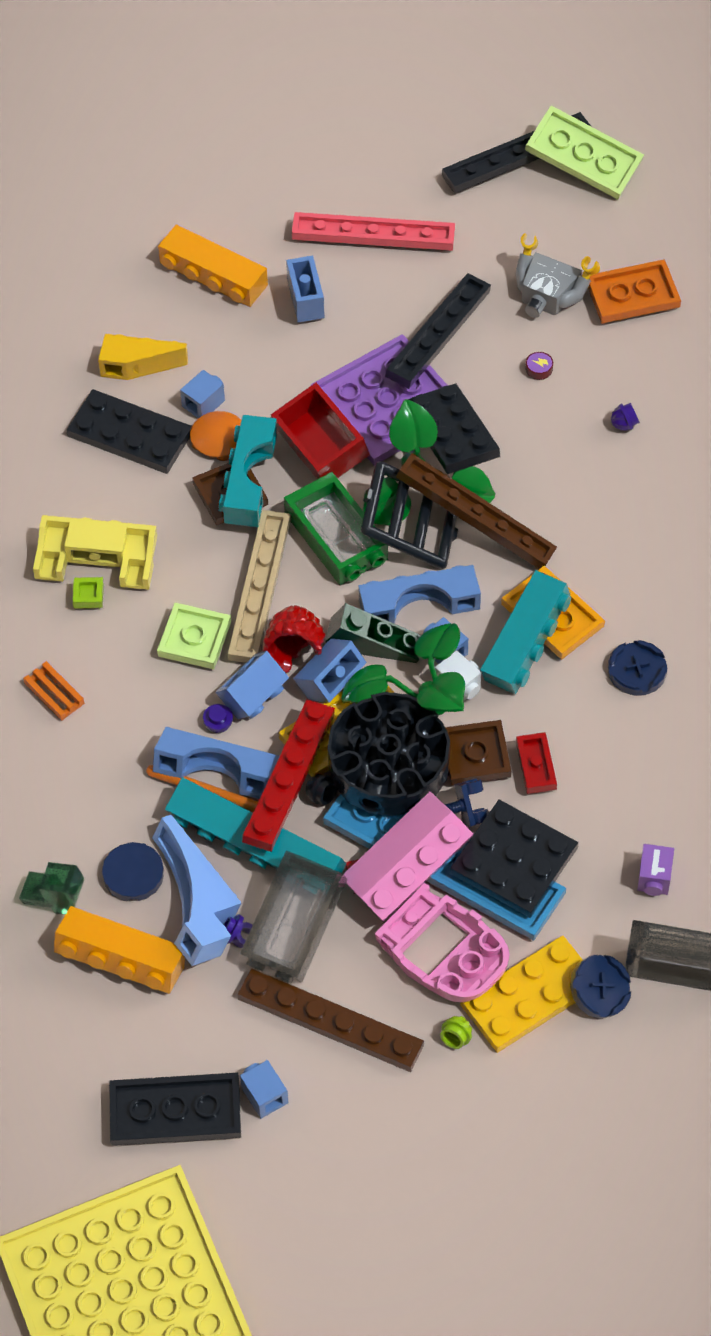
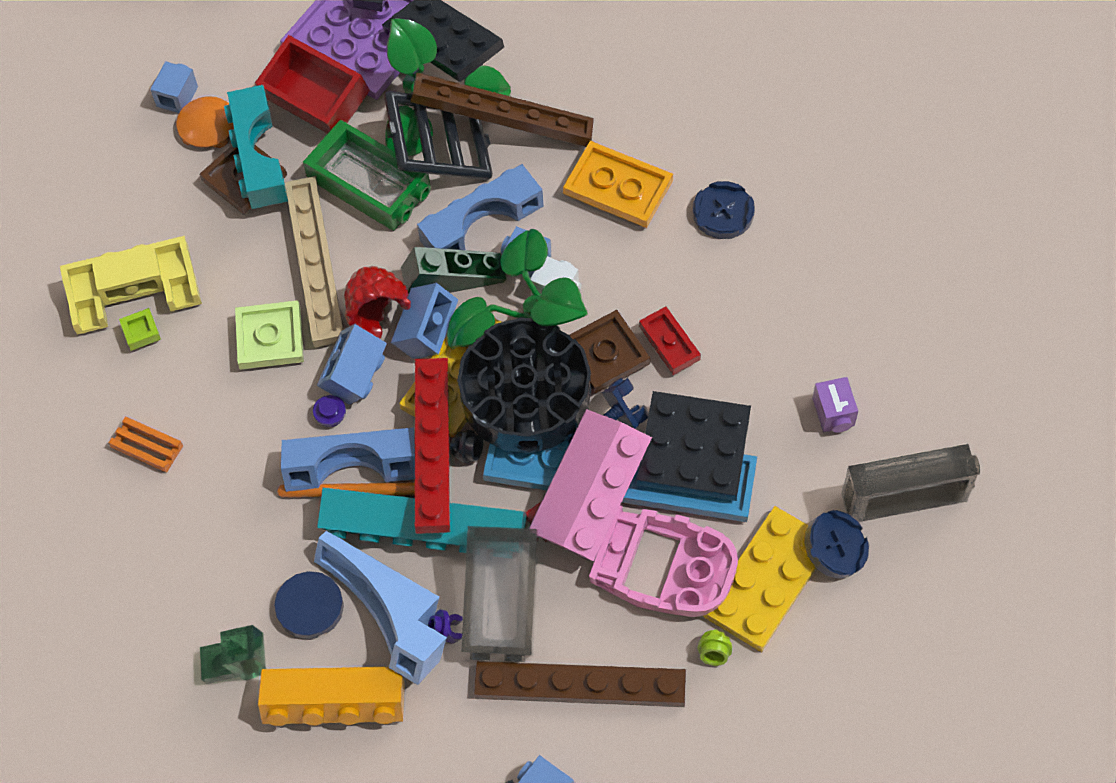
camera: 20 degrees left, 5 degrees up
(129, 431) = (113, 149): black plate -> none
(136, 357) = (90, 72): yellow slope -> none
(526, 632) = (604, 213): teal brick -> none

